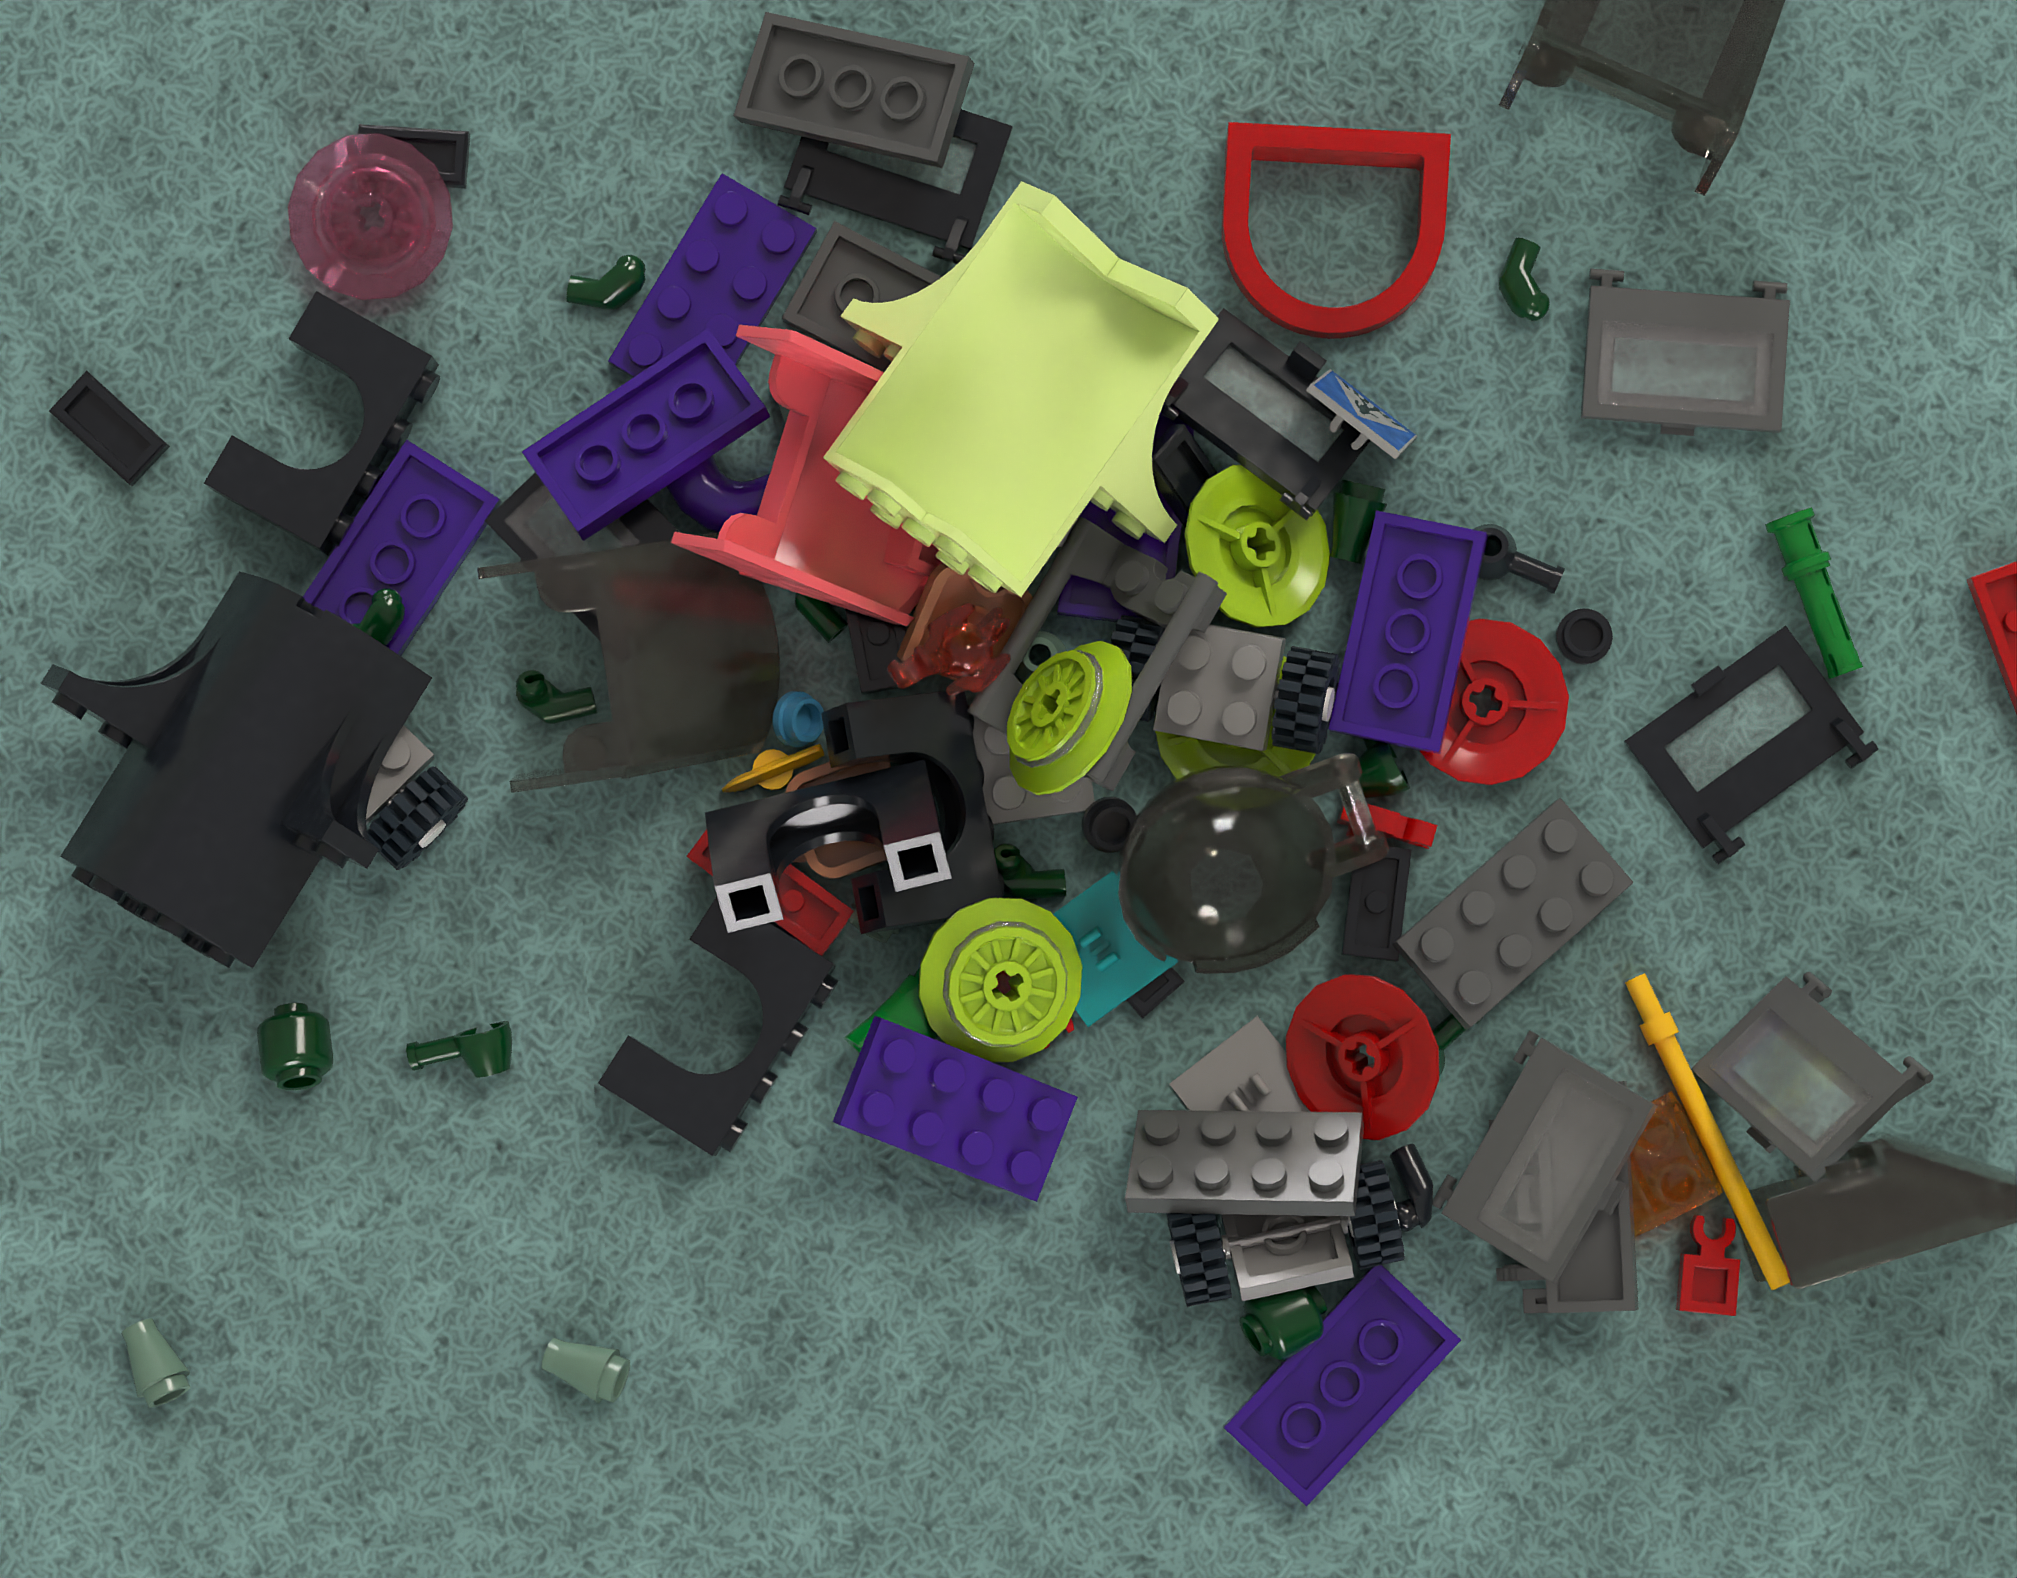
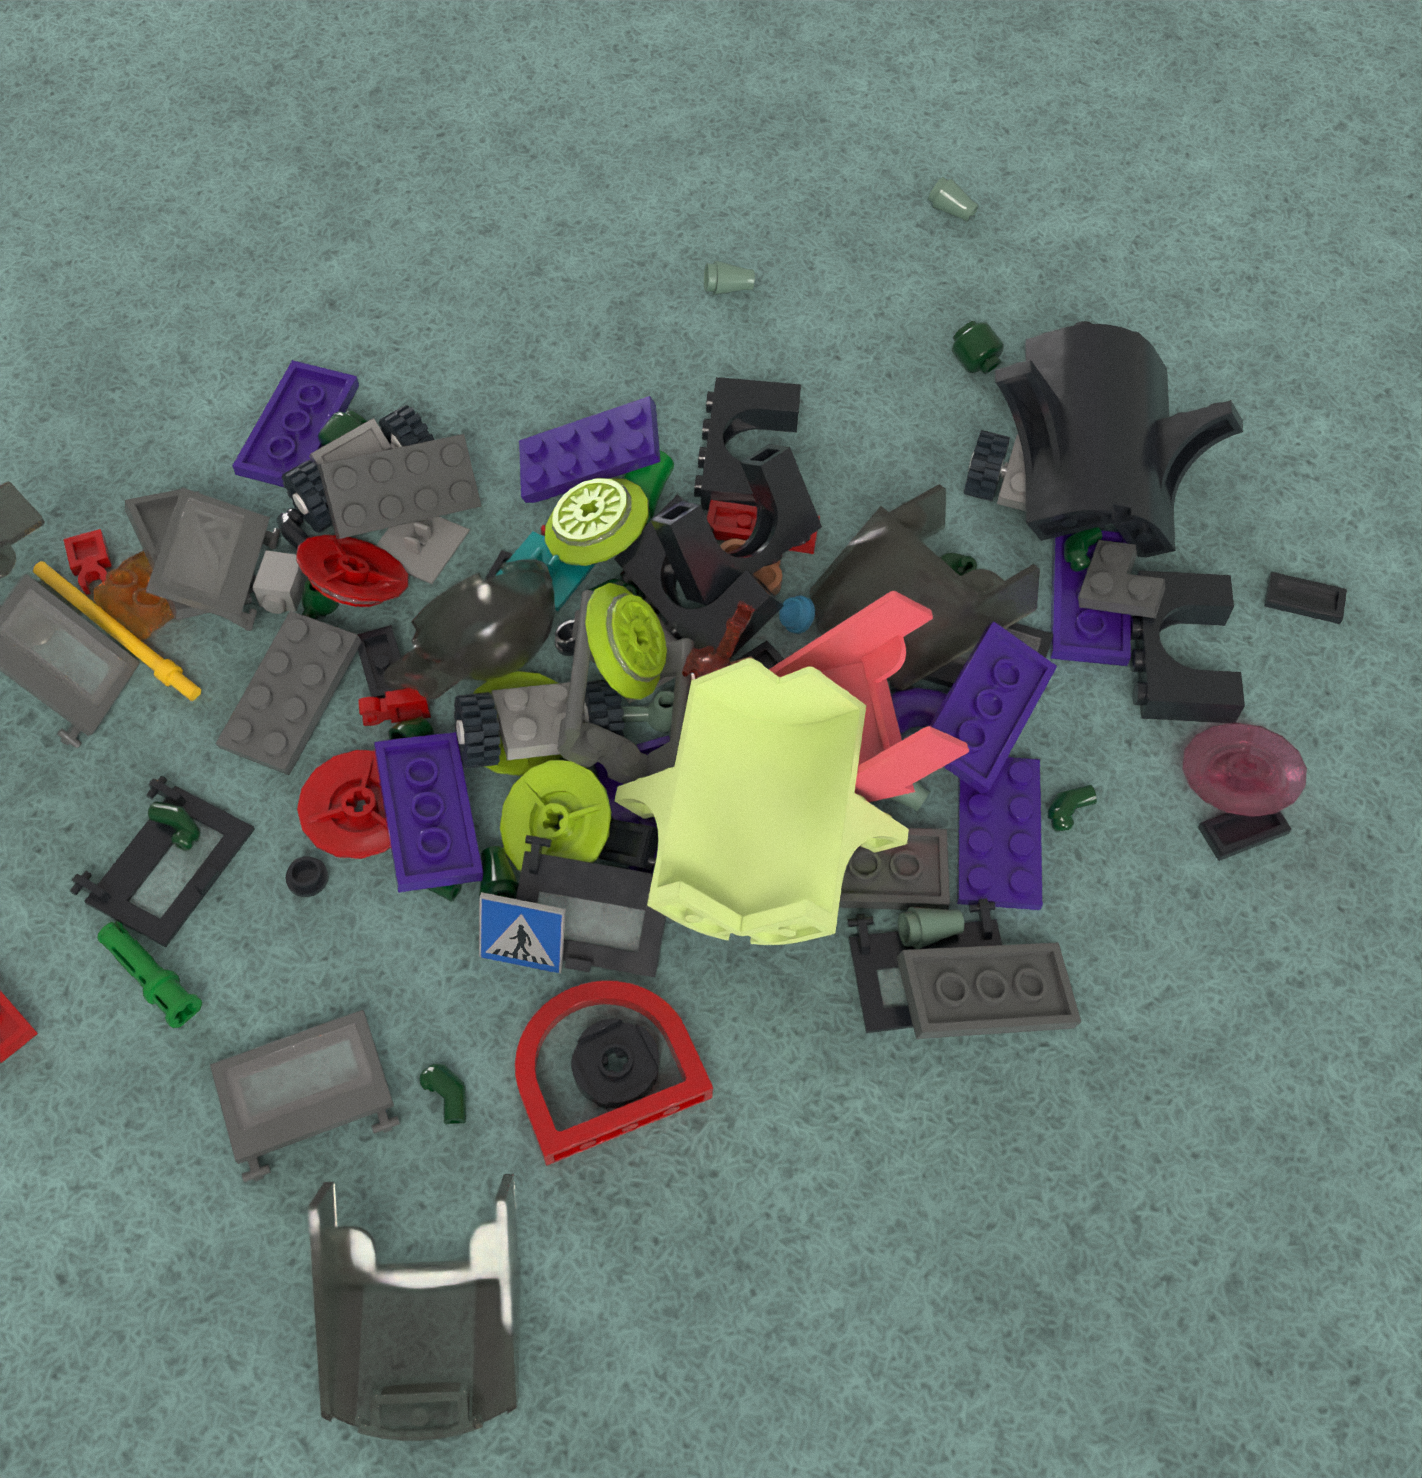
camera: 150 degrees right, 25 degrees down
(374, 543) = (1112, 586): none -> dark grey plate
(483, 1052) = (871, 385): dark green bar -> none
(774, 769) = (799, 584): yellow piece -> none
(877, 204) = (926, 926): none -> sand green cone
(1341, 199) = (624, 1040): none -> black plate
(1465, 1097) = (279, 582): none -> light grey brick
(1515, 562) = (388, 910): black bar -> none
(1716, 780) = (186, 829): none -> dark green arm

